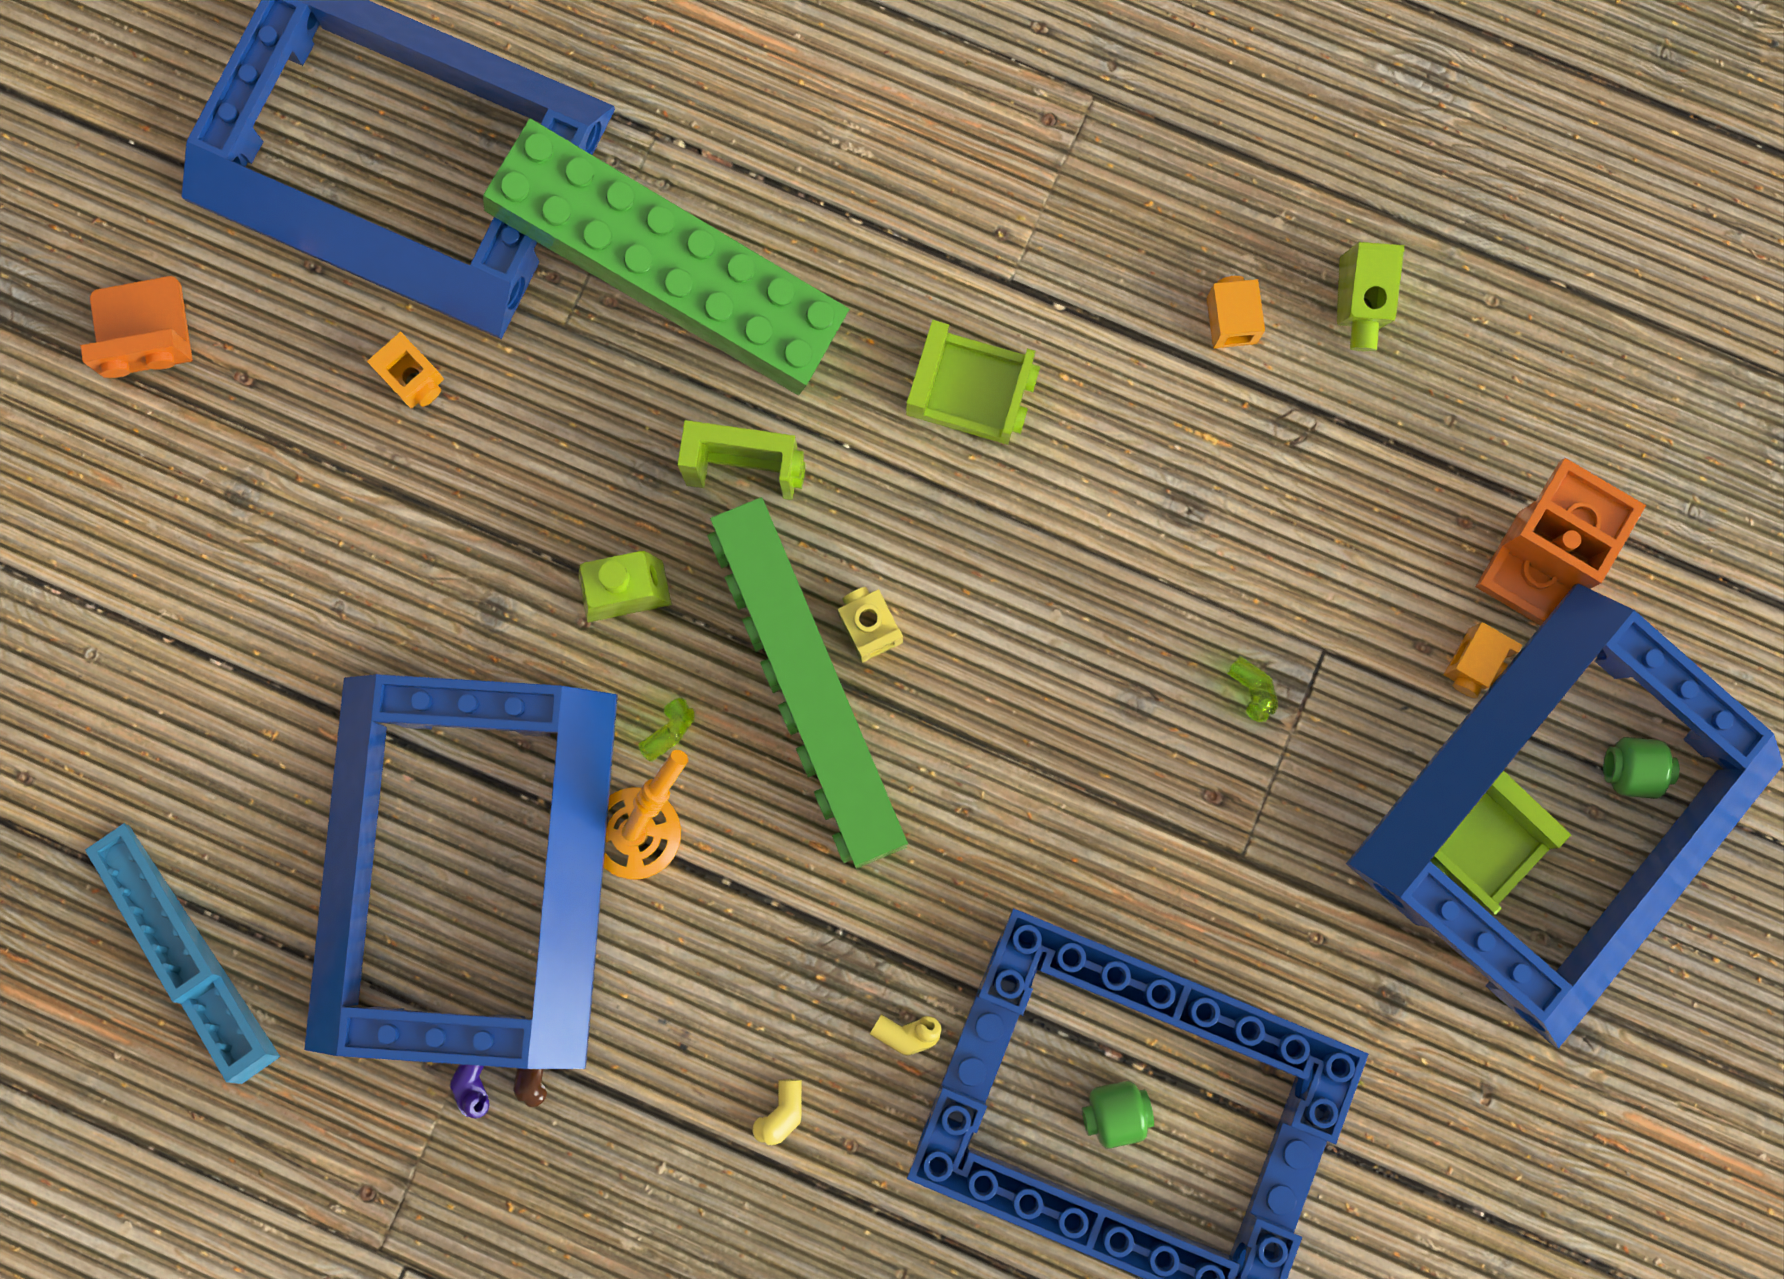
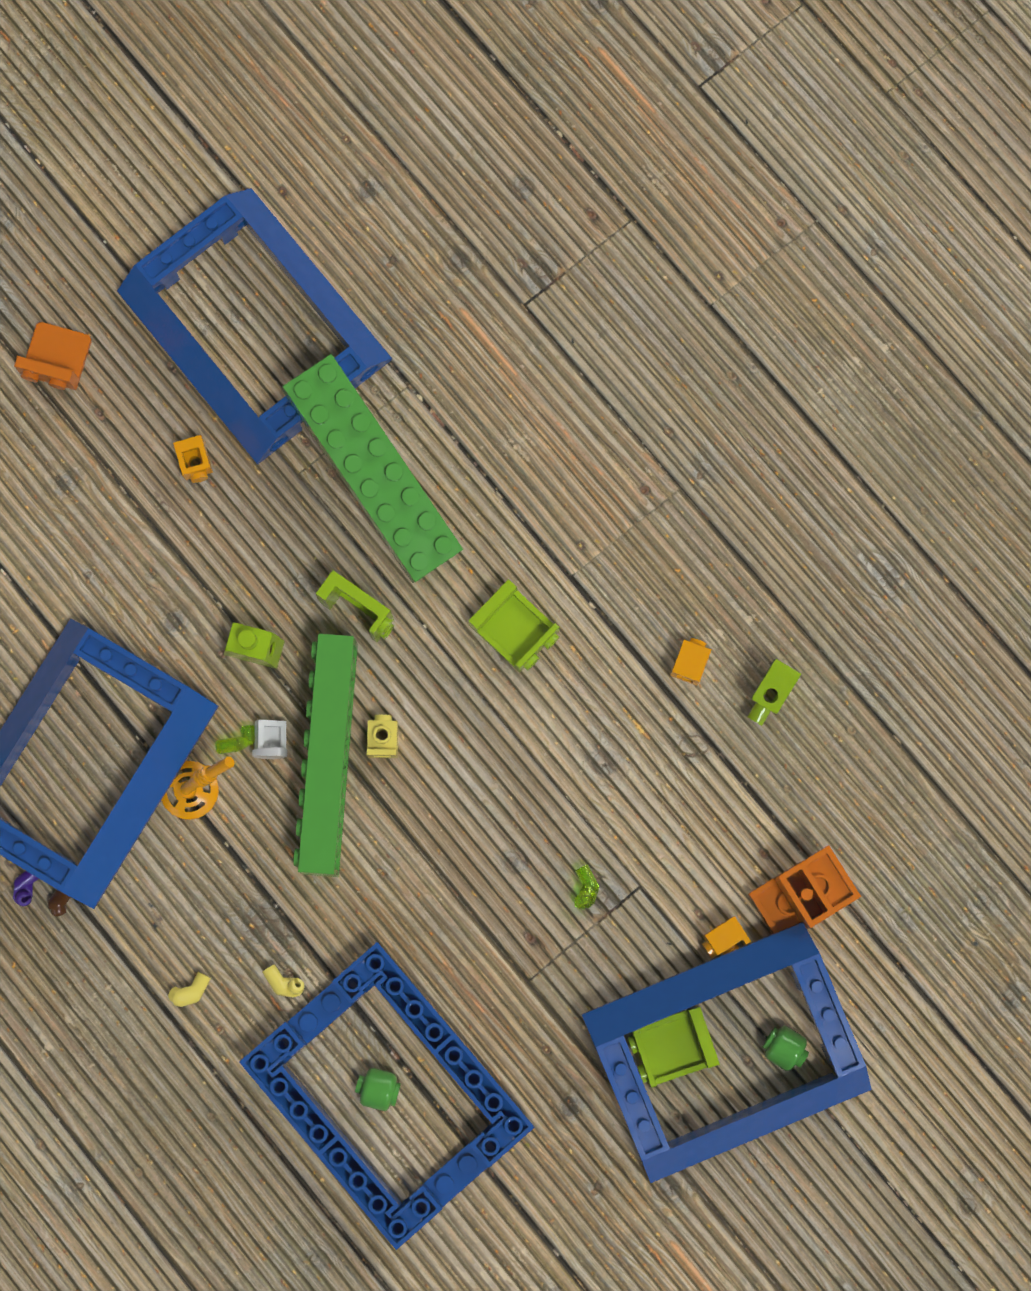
camera: 30 degrees right, 0 degrees up
(713, 705) = (270, 739): none -> white tile

